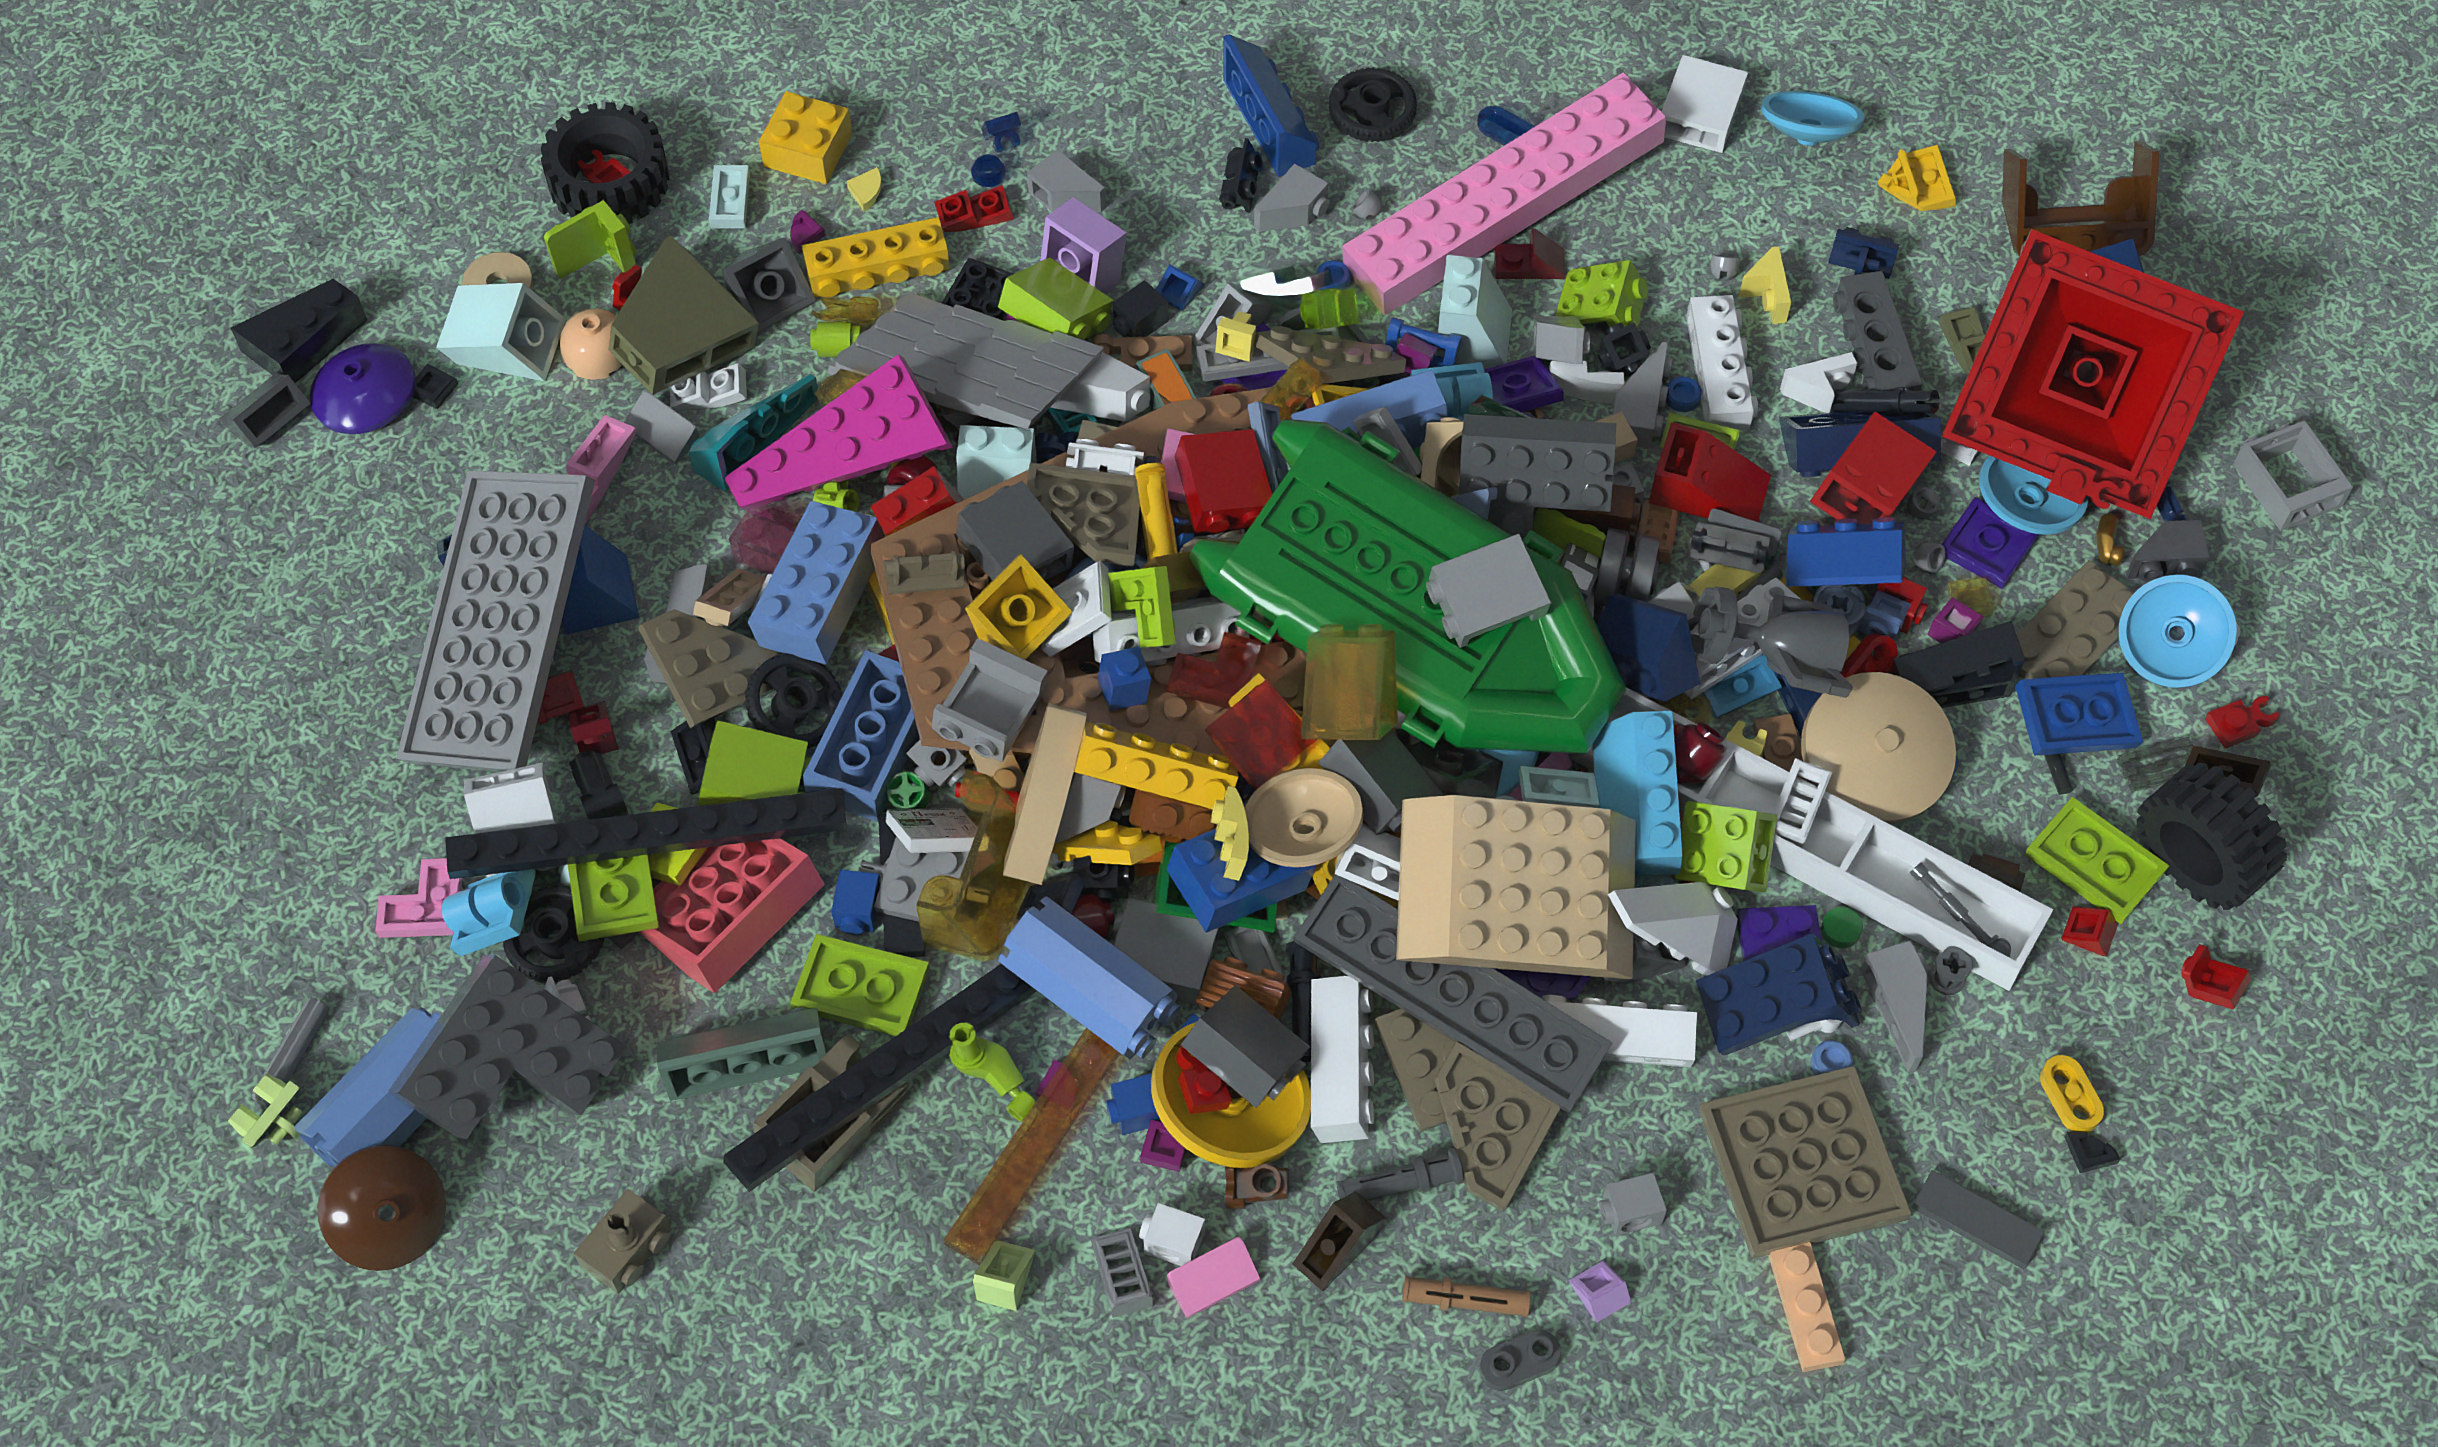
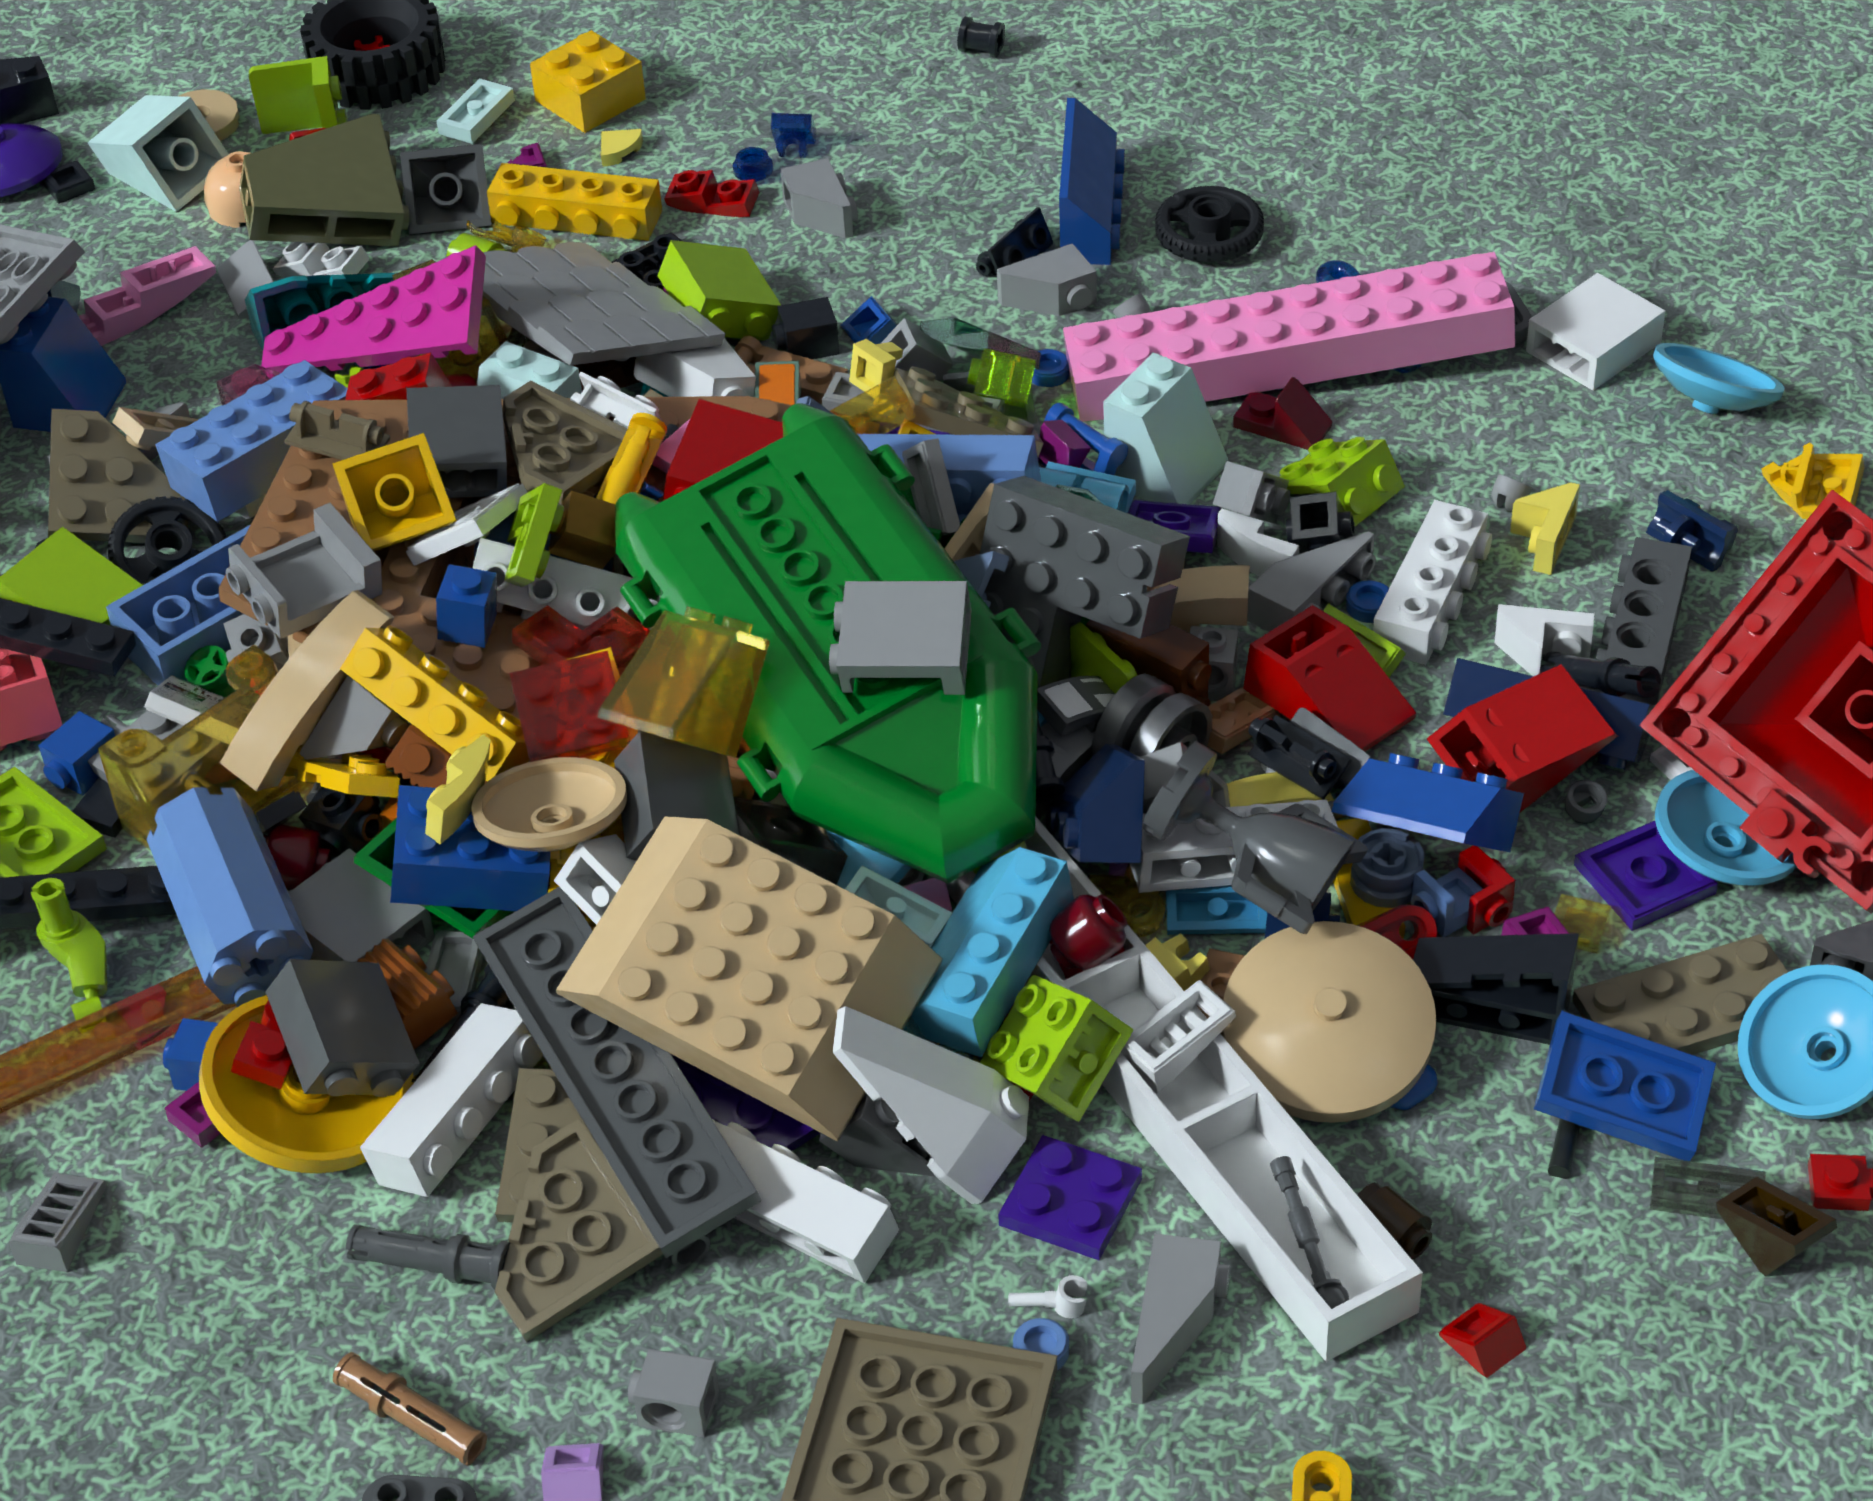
camera: 30 degrees right, 15 degrees down
(1085, 244) = (785, 244): lavender brick -> none
(1172, 1234) = (137, 1203): white brick -> none
(1212, 1277) = (149, 1264): bright pink slope -> none
(1245, 1185) = (266, 1189): reddish brown plate -> none
(1338, 1239) = (312, 1281): dark brown slope -> none
(1777, 993) = (1027, 1228): dark blue bracket -> none
(1841, 927) = (1160, 1207): green tile -> none
(1929, 556) = (1562, 854): light grey hinge -> none
(1960, 968) = (1250, 1295): dark grey bush -> none
(2096, 860) = (1542, 1260): lime plate -> none
(2105, 541) = (1800, 918): pearl gold arm -> none
(2212, 835) = (1689, 1266): black tyre -> none
(2214, 980) = (1604, 1453): red bracket -> none

